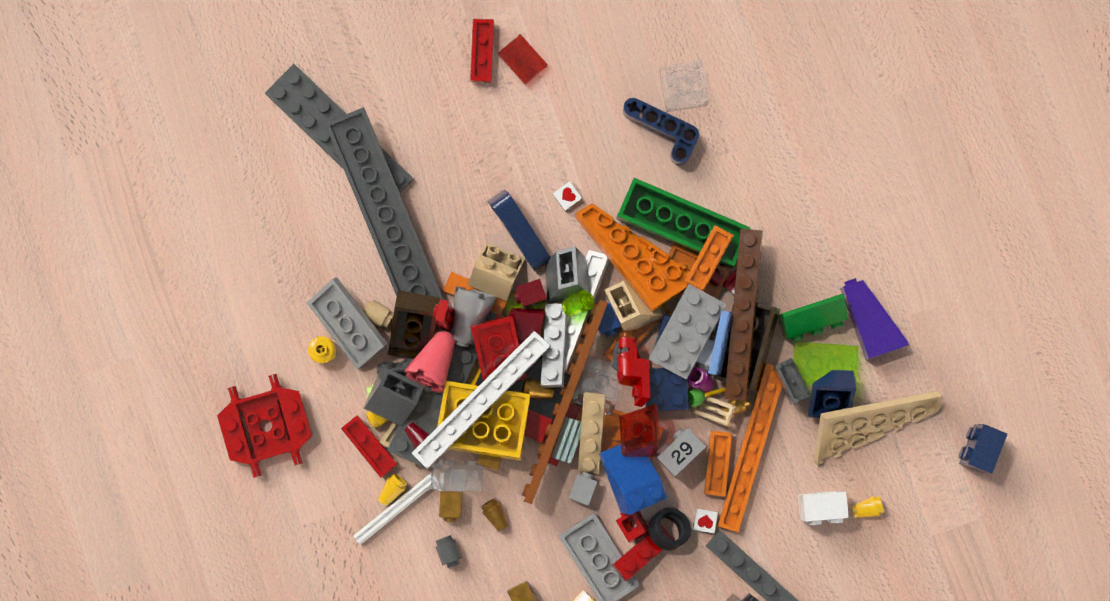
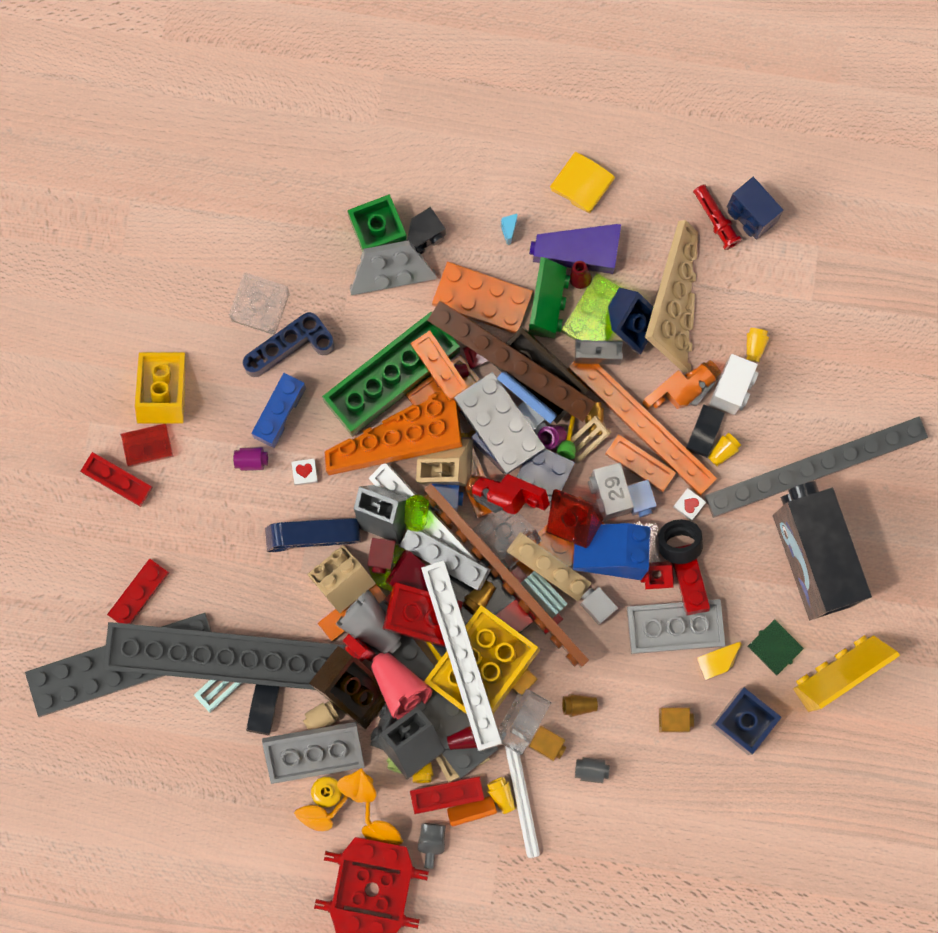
camera: 65 degrees left, 5 degrees down
(326, 453) = (431, 842): none -> dark grey piece
(336, 374) = (360, 789): none -> light orange plant
(343, 216) = (204, 702): none -> light aqua tile
(360, 265) = (262, 709): none -> black slope
(365, 472) = (471, 811): none -> orange slope
(401, 117) = (138, 593): none -> red plate
(554, 147) = (250, 459): none -> magenta brick
(573, 44) = (160, 388): none -> yellow slope
(610, 147) = (282, 401): none -> blue arch
(688, 479) = (642, 498): none -> medium blue brick
(766, 526) = (724, 449): none -> yellow cone
(770, 175) = (390, 267): none -> light grey wing
(773, 502) = (705, 431): none -> black slope
(787, 263) = (483, 297): none -> orange plate
(798, 470) = (685, 390): none -> orange plate
(799, 146) = (377, 223): none -> green brick
(816, 185) = (425, 230): none -> black slope
(848, 333) = (580, 275): none -> dark red cone
(857, 253) = (508, 227): none -> medium azure slope
(929, 294) = (582, 182): none -> yellow slope
(954, 429) = (721, 225): none -> red pin

